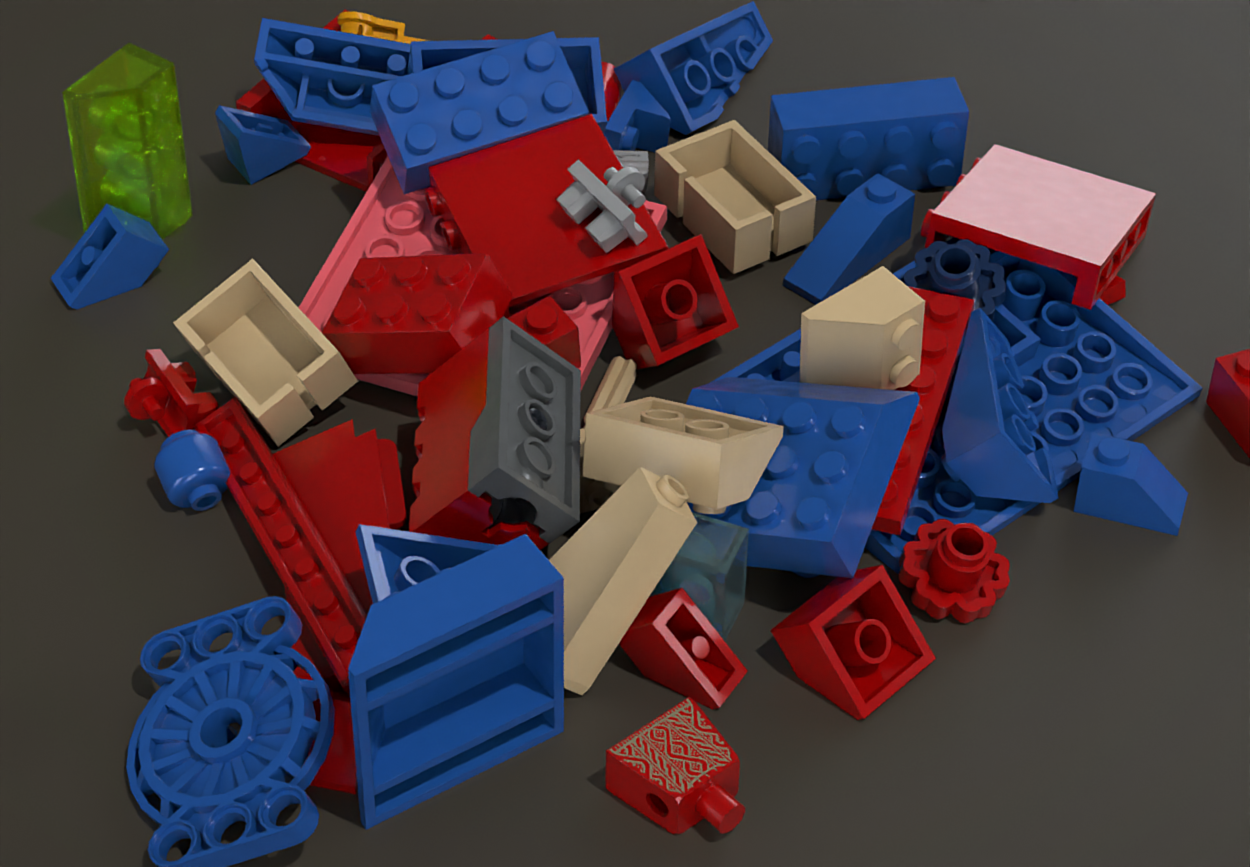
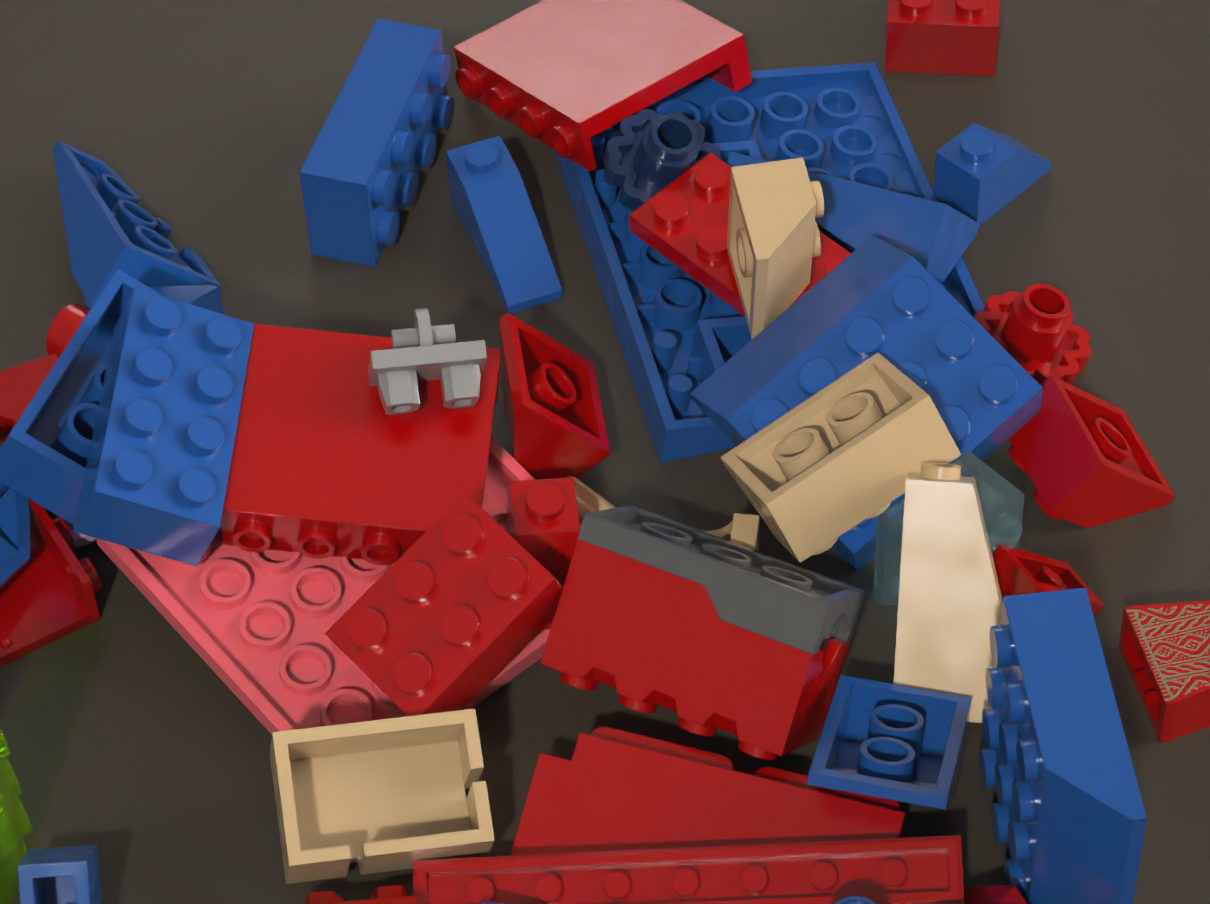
camera: 60 degrees left, 5 degrees up
(734, 196) = (377, 271): tan piece -> none

